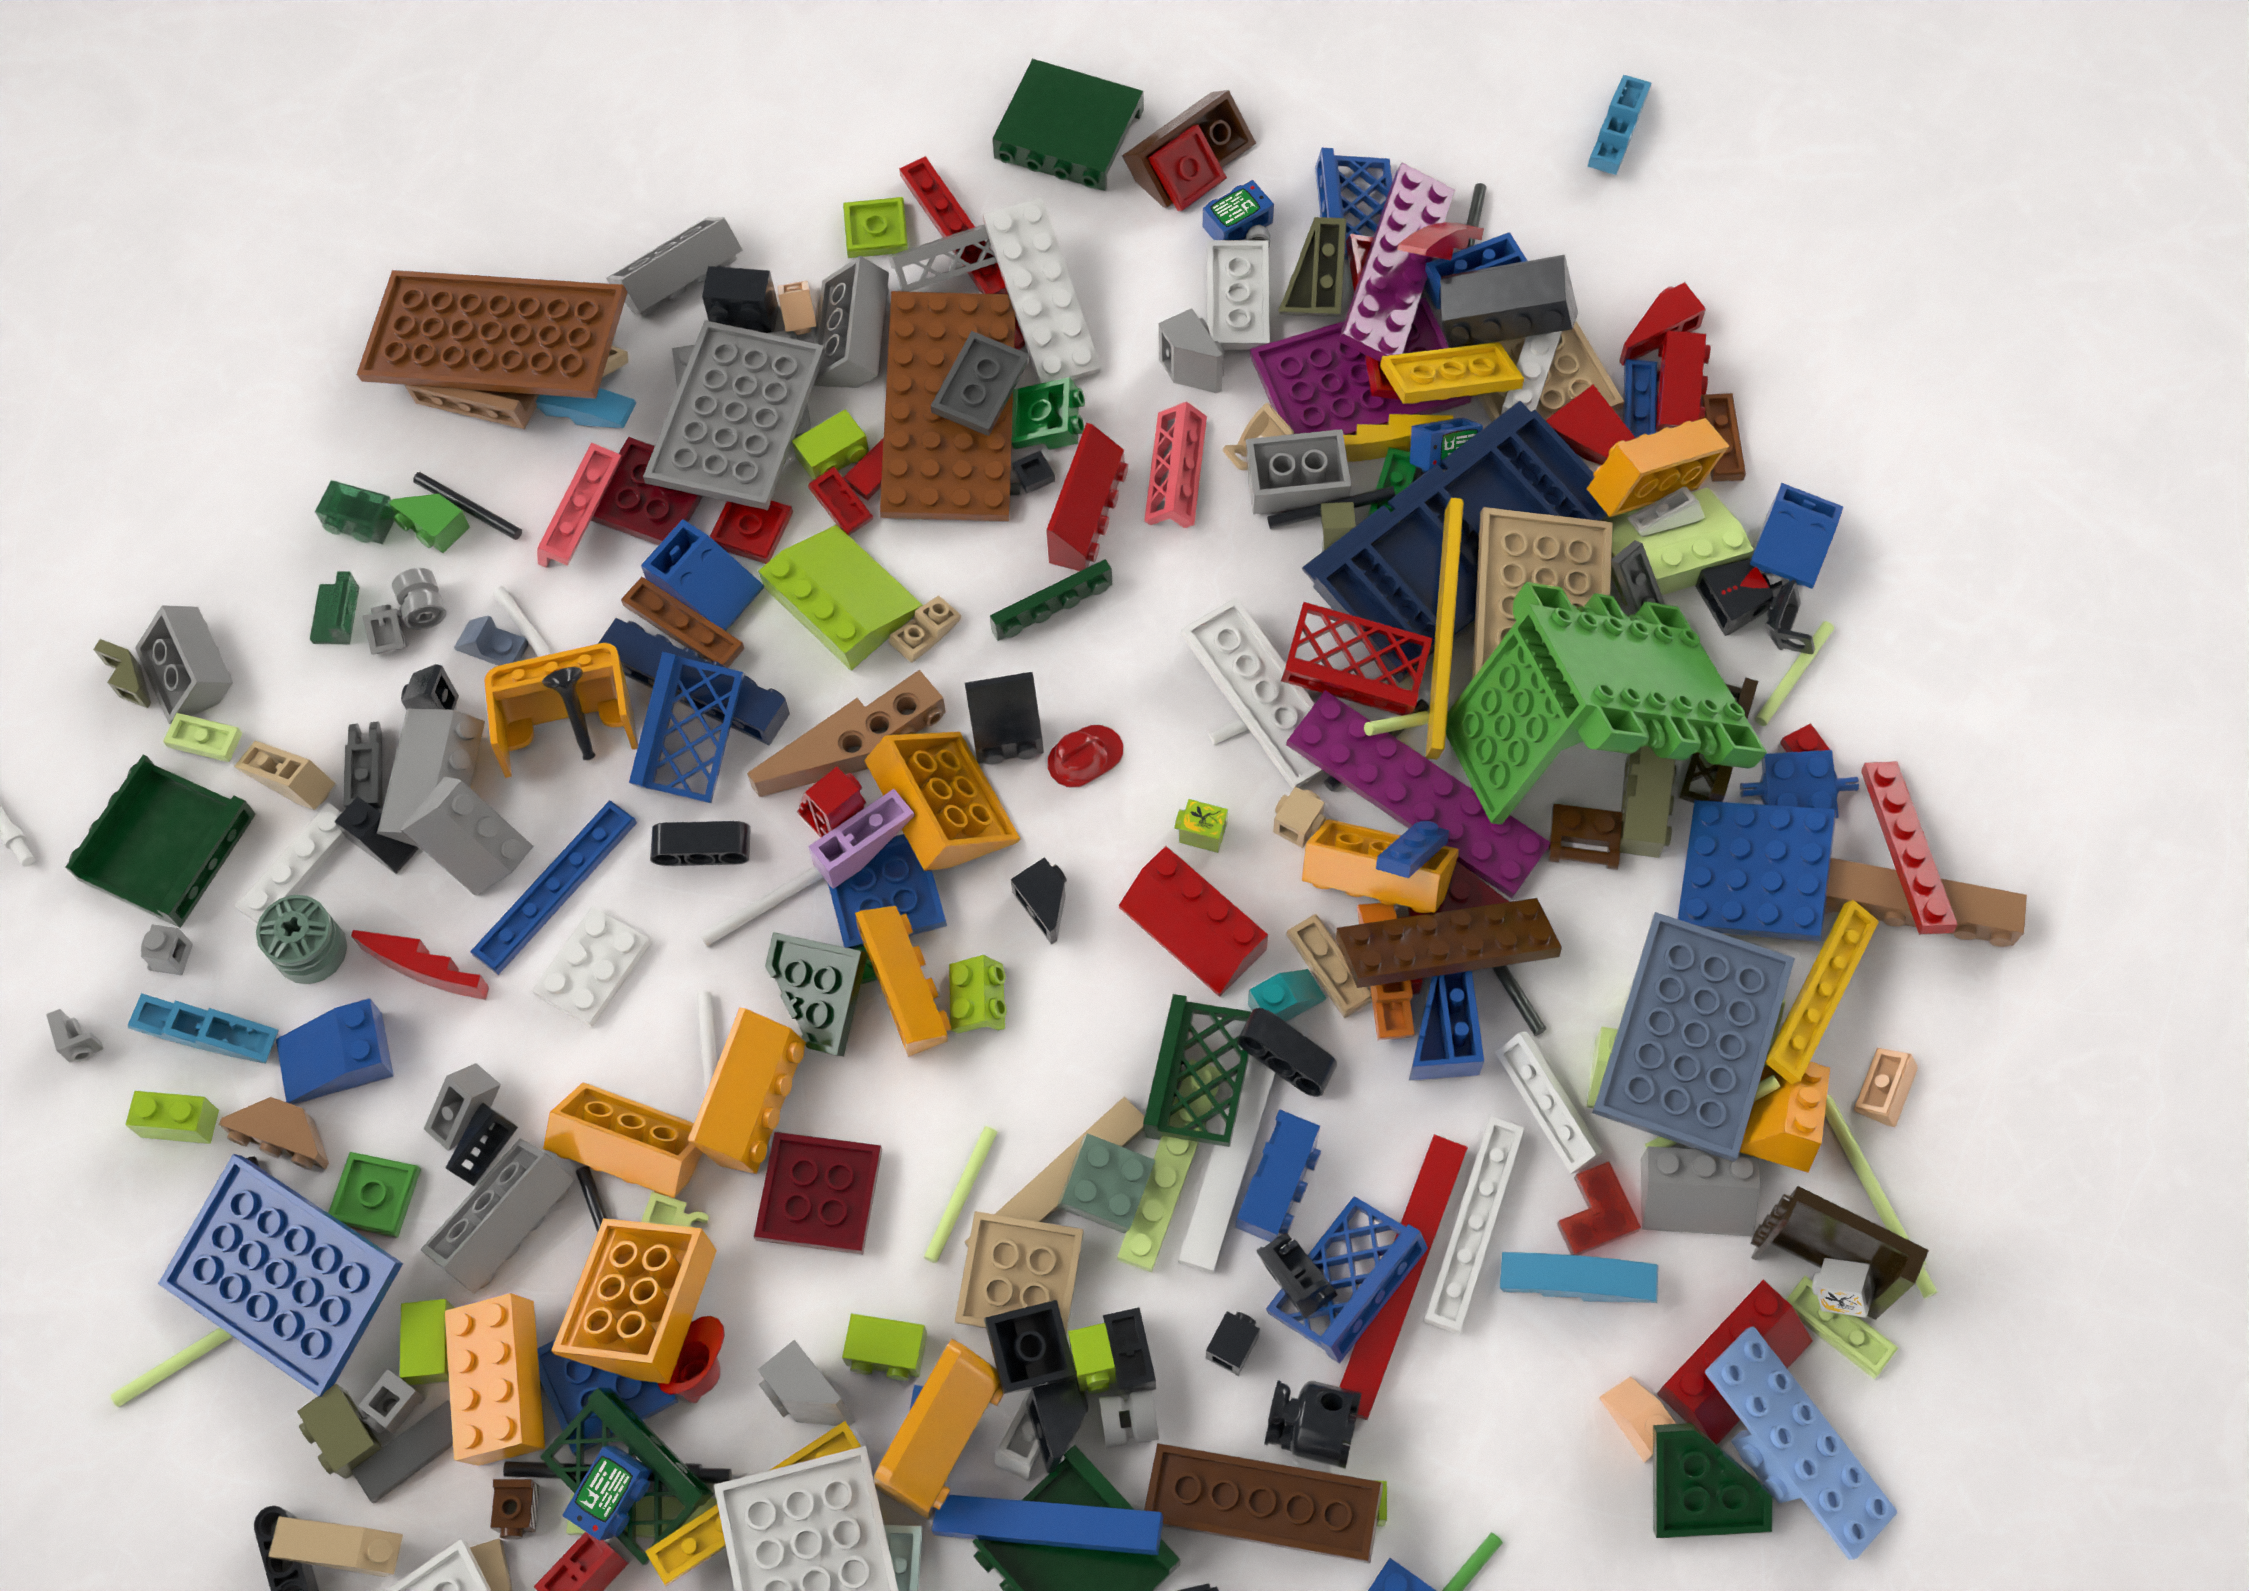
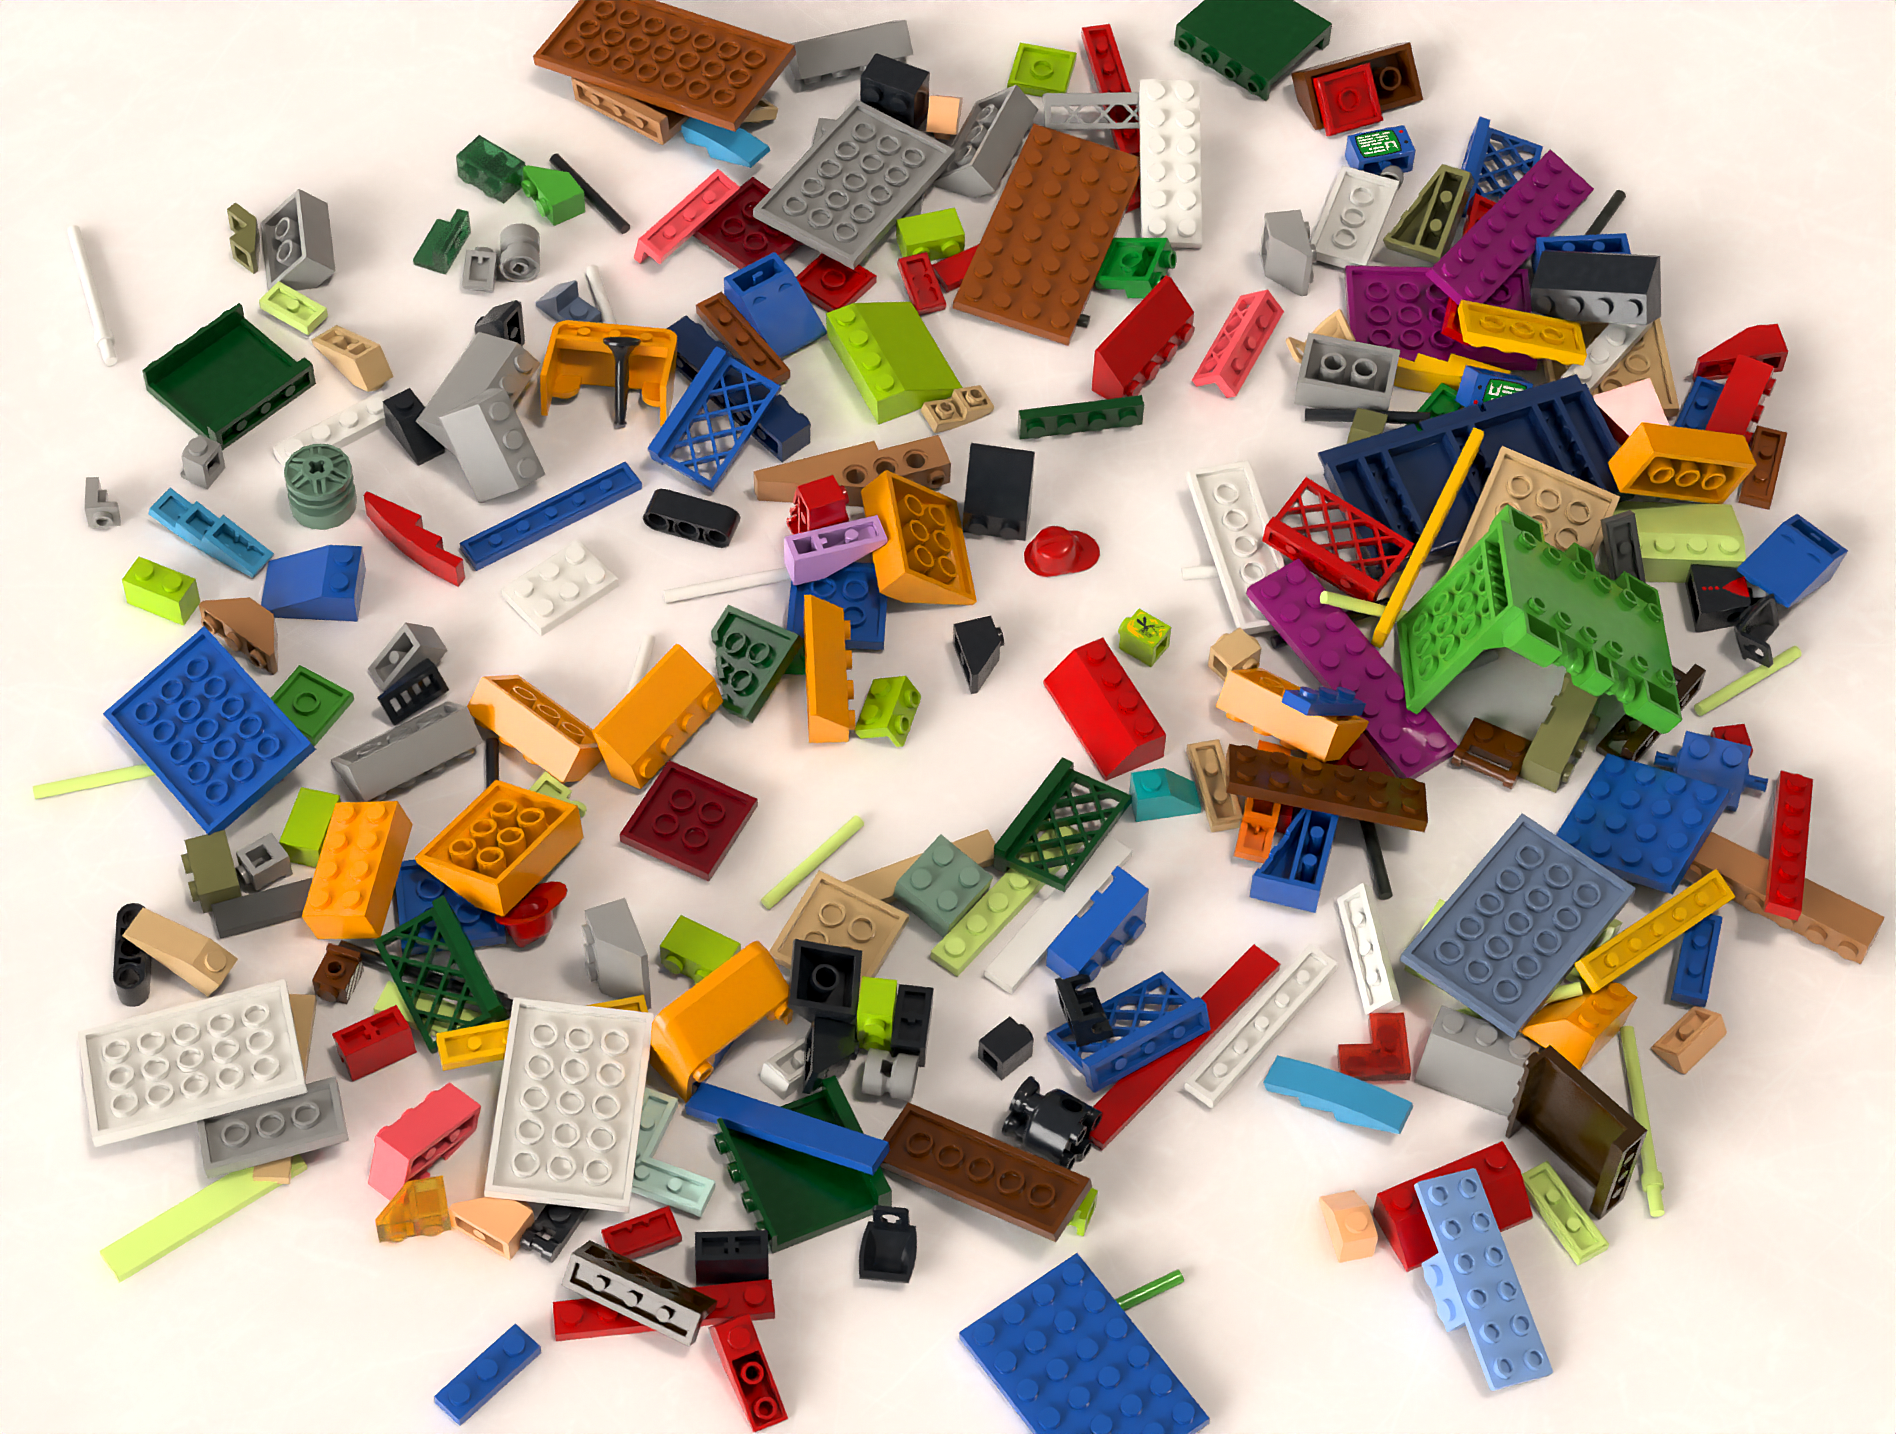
camera: 15 degrees right, 10 degrees down
(363, 766) = (423, 368): dark grey hinge -> none
(608, 1493) = (422, 979): brick -> none
(980, 383) = (1084, 219): dark grey plate -> none
(1033, 472) = (1105, 310): black plate -> none
(1287, 1052) = (1146, 834): black beam -> none
(1440, 239) = (1555, 220): slope -> none
(1619, 124) = (1776, 178): dark azure slope -> none
(1668, 513) = (1680, 509): white slope -> none
(1703, 1488) = (1379, 1287): dark green plate -> none
(1844, 1287) = (1574, 1171): white brick -> none
(1866, 1006) = (1697, 962): none -> blue plate

